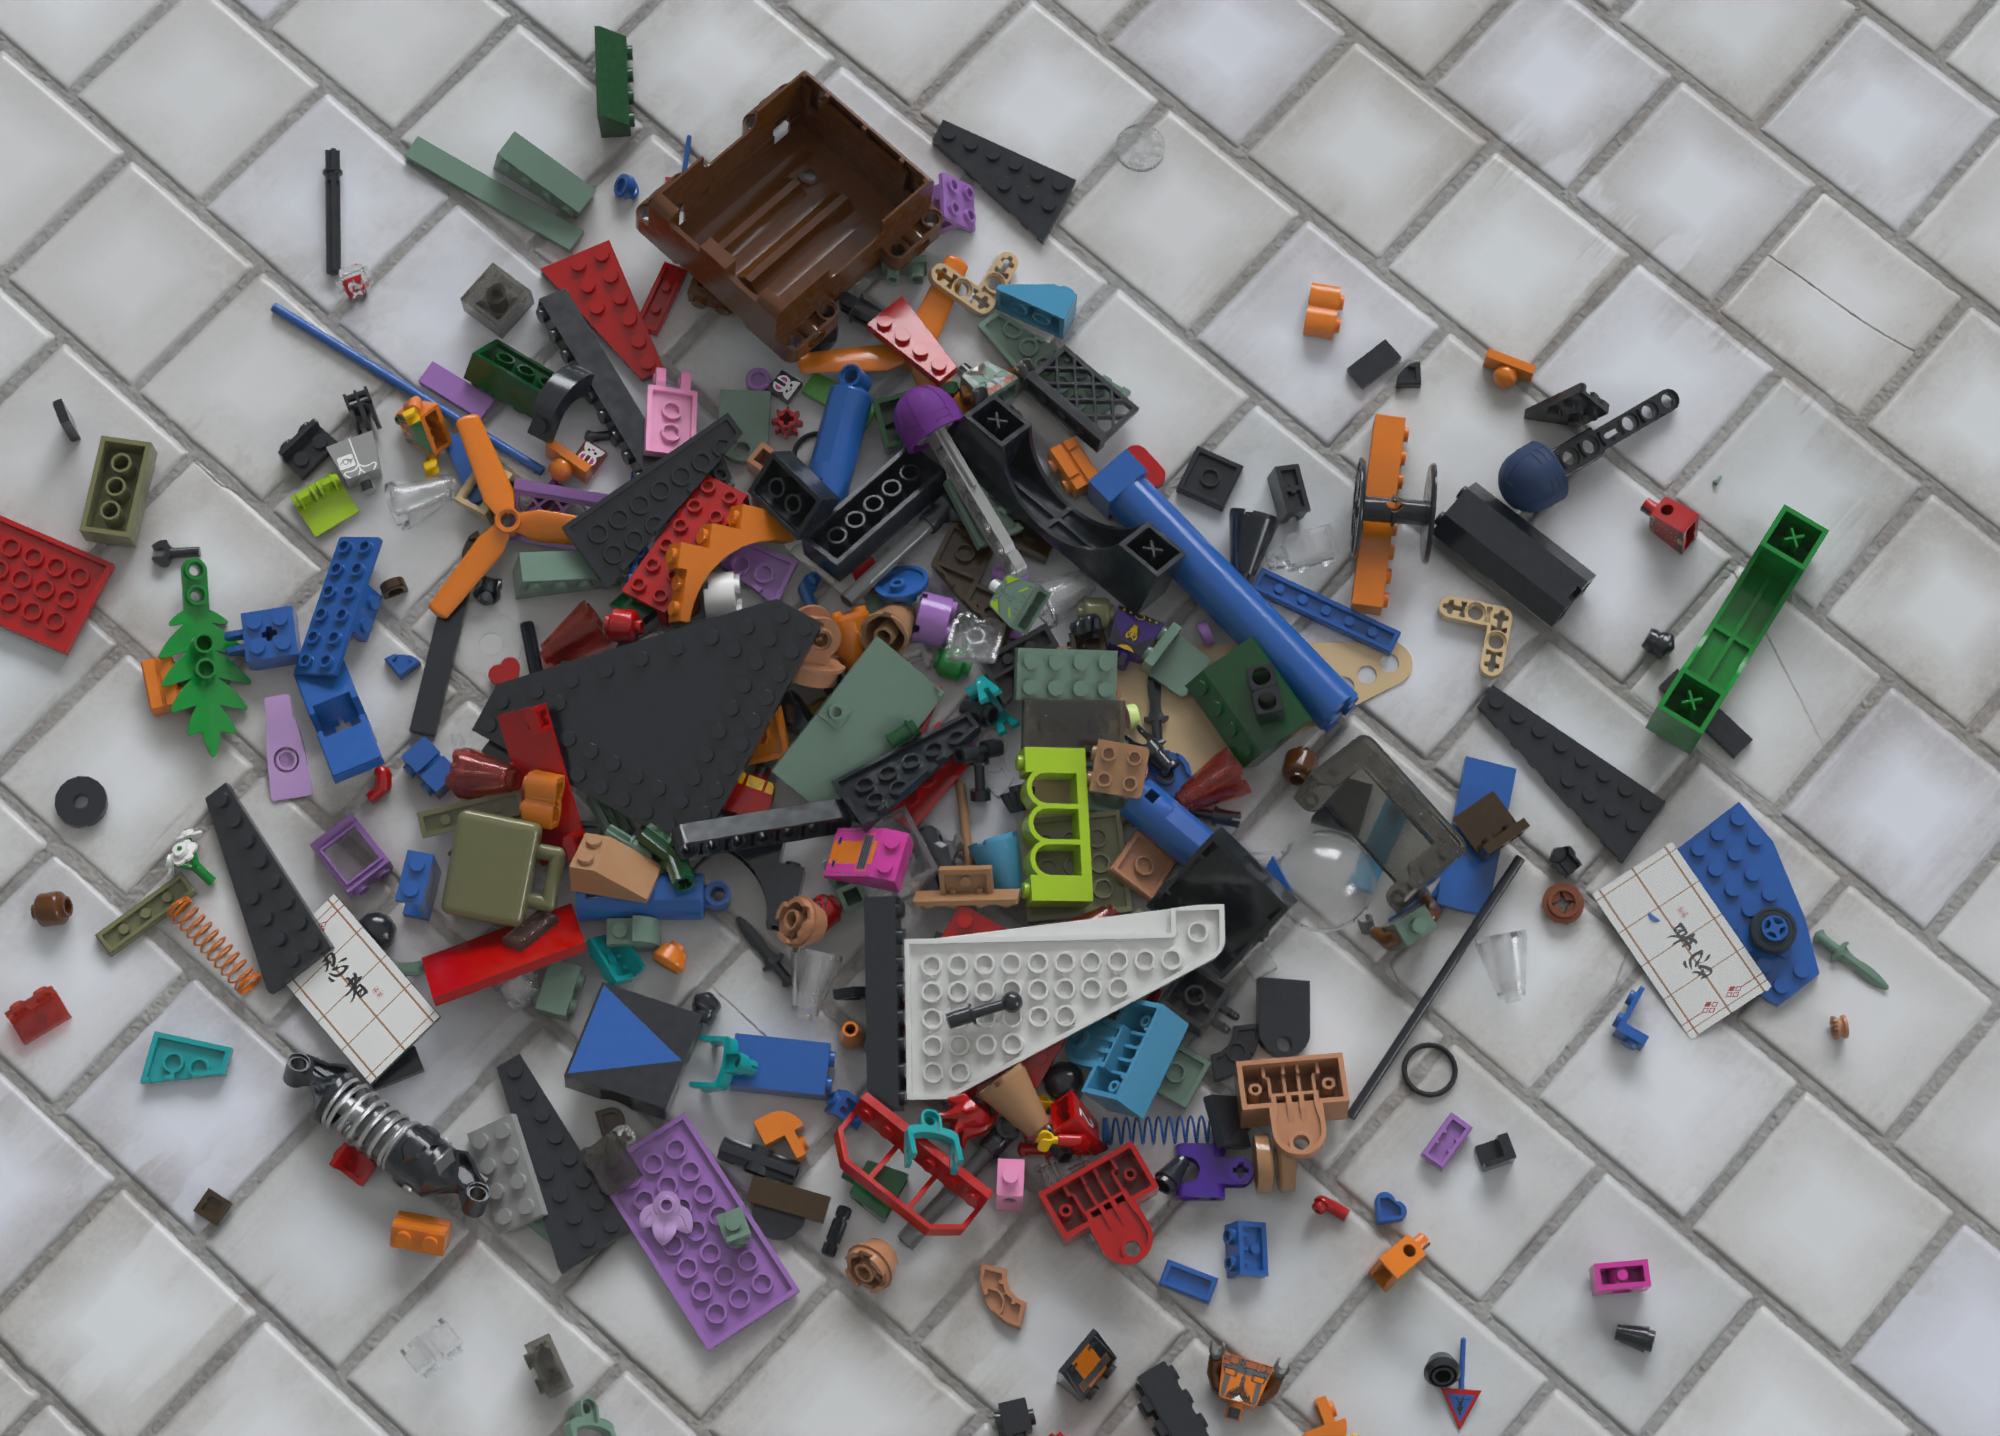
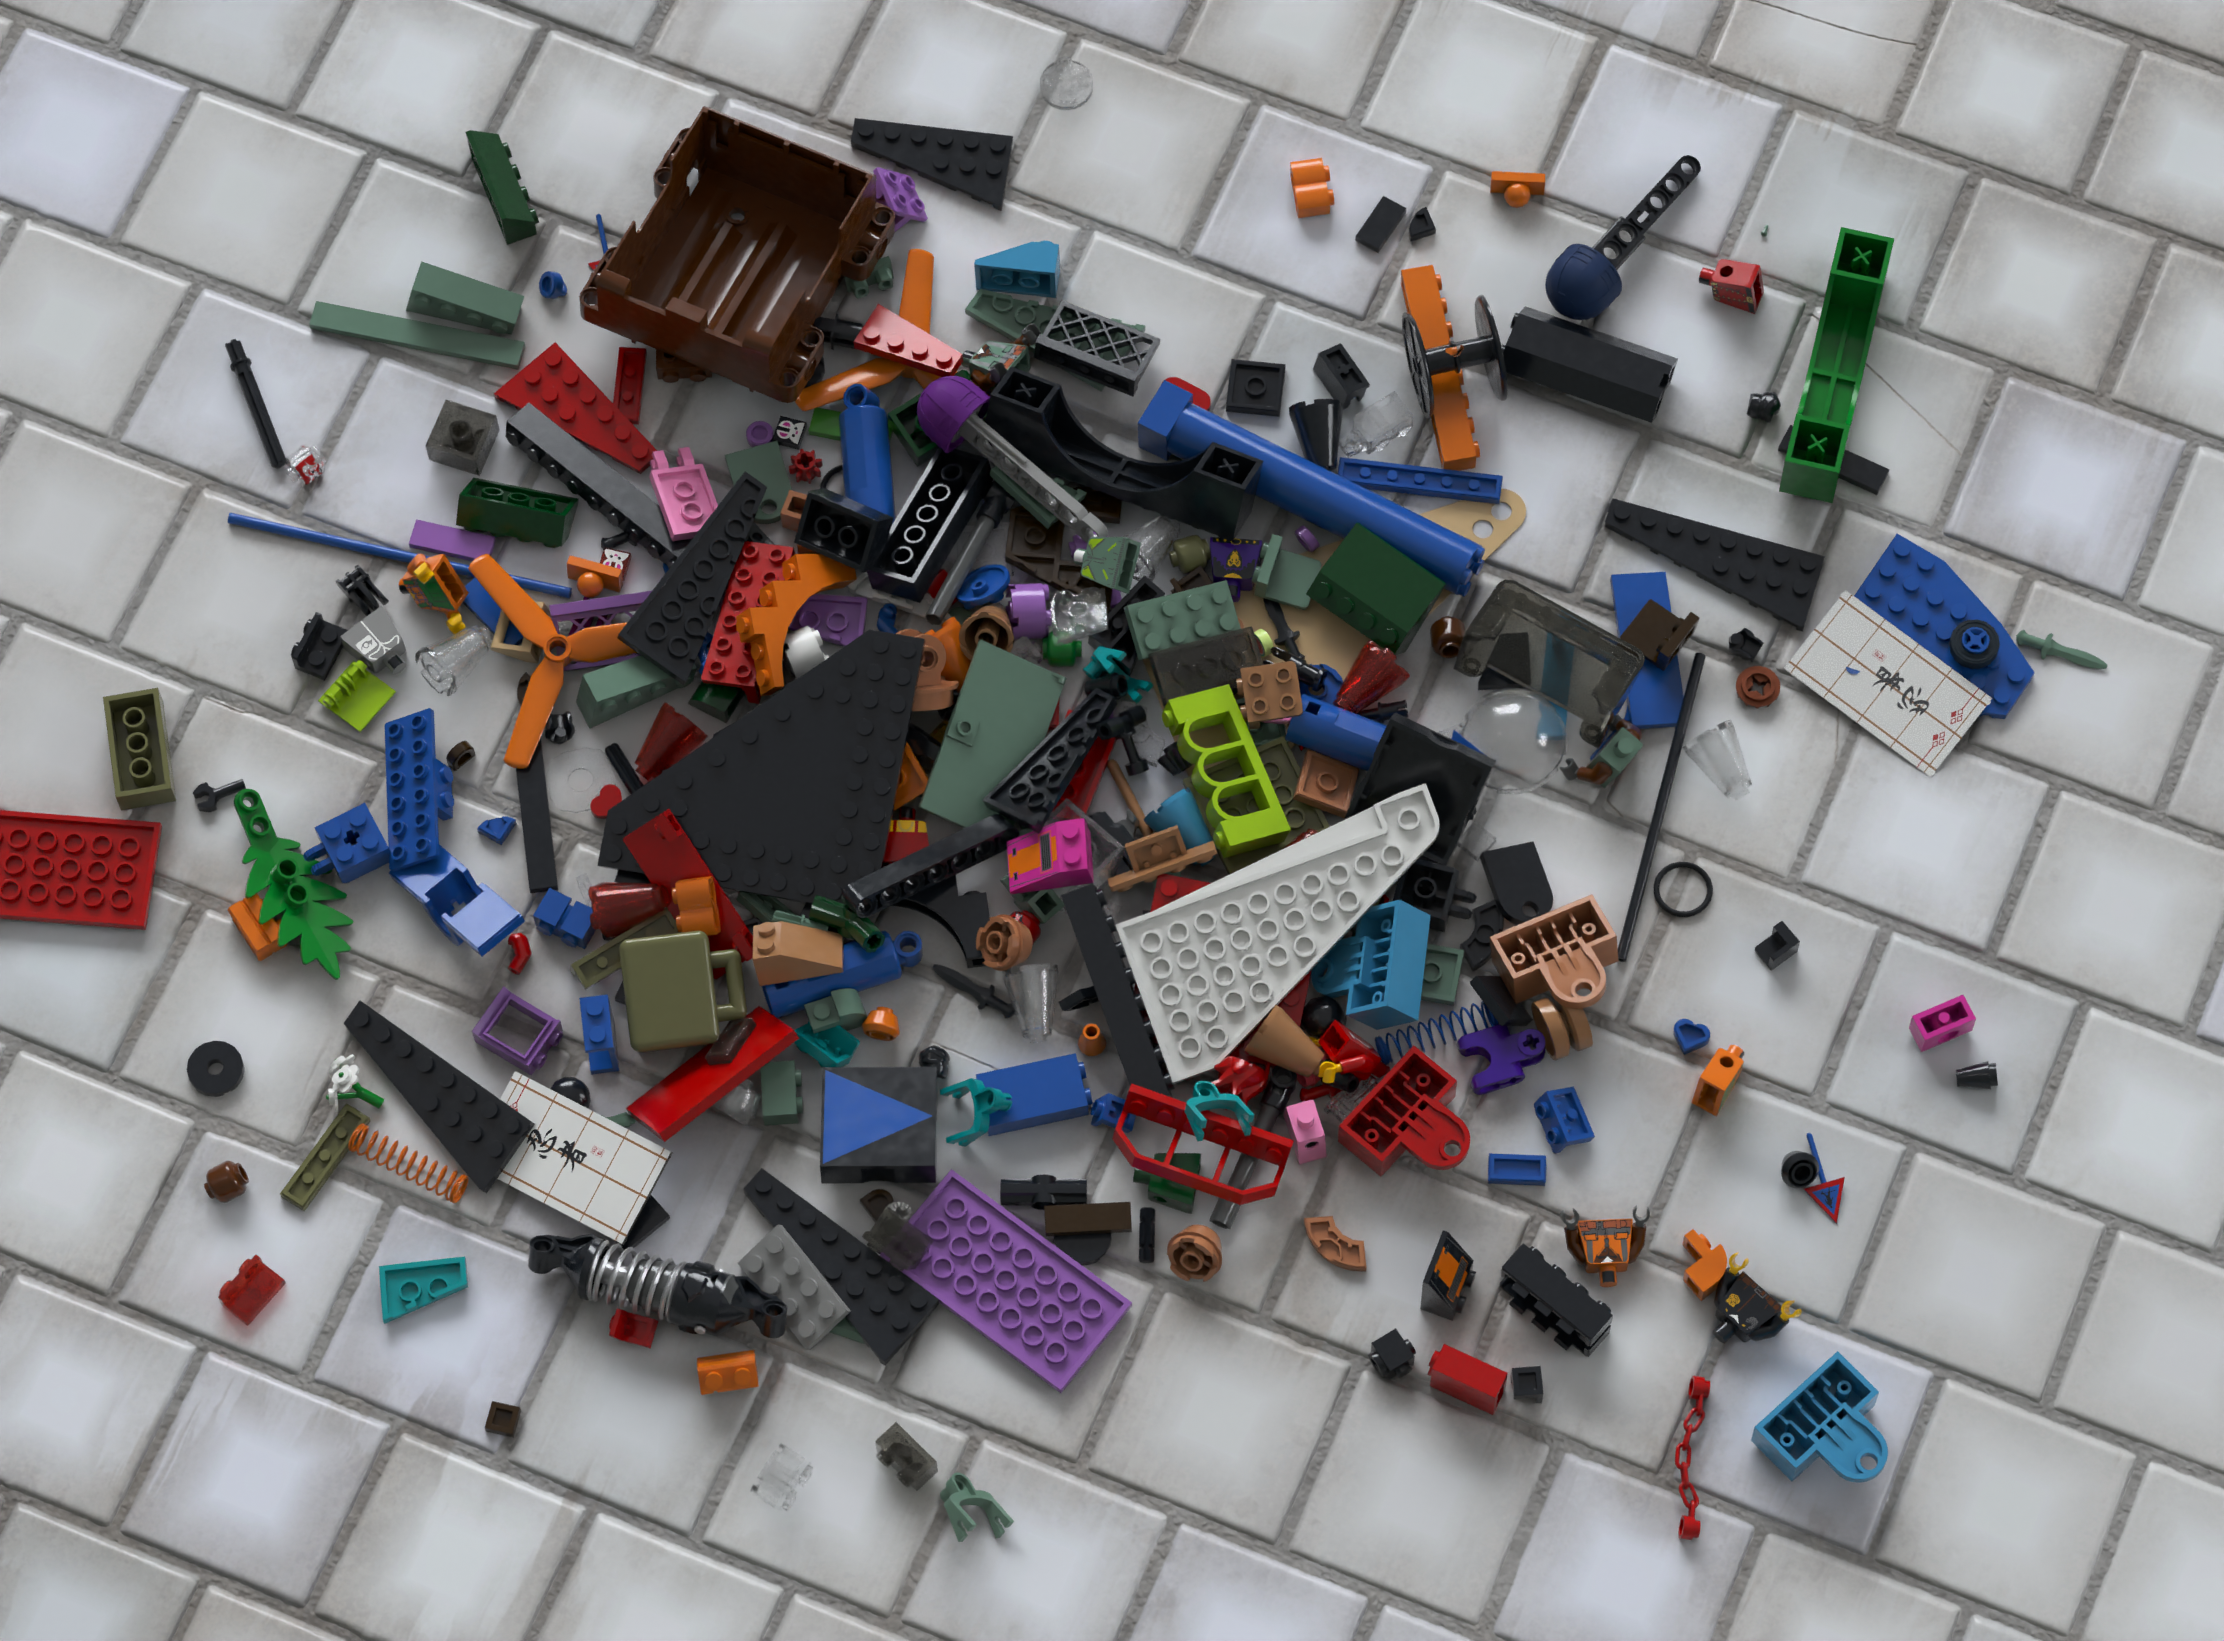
camera: 15 degrees left, 5 degrees down
(66, 420) = (58, 694): black tile -> none
(285, 751) = (409, 951): lavender piece -> none
(556, 397) = (563, 512): black arch -> none
(623, 625) = (715, 713): red head -> none
(664, 1221) = (972, 1279): lavender plate -> none
(734, 1228) = (1044, 1262): sand green bracket -> none
(780, 1127) = (1057, 1151): orange brick -> none
(902, 733) = (1038, 730): dark green pin -> none
(981, 291) = (956, 275): tan beam -> none
(1010, 1002) = (1244, 950): black pin -> none
(1072, 466) = (1112, 418): orange brick -> none
(1087, 626) = (1187, 567): black arm -> none
(1171, 1174) = (1464, 1068): black cone -> none
(1265, 716) = (1401, 592): black piece -> none
(1323, 1204) = (1624, 1049): red arm -> none
(1446, 1141) = (1724, 951): medium lavender plate -> none
(1486, 622) = (1585, 439): tan beam -> none
(1570, 408) = (1594, 203): black wing -> none
(1629, 1036) = (1868, 791): blue bracket -> none
(1839, 1026) = (2072, 716): nougat bush -> none

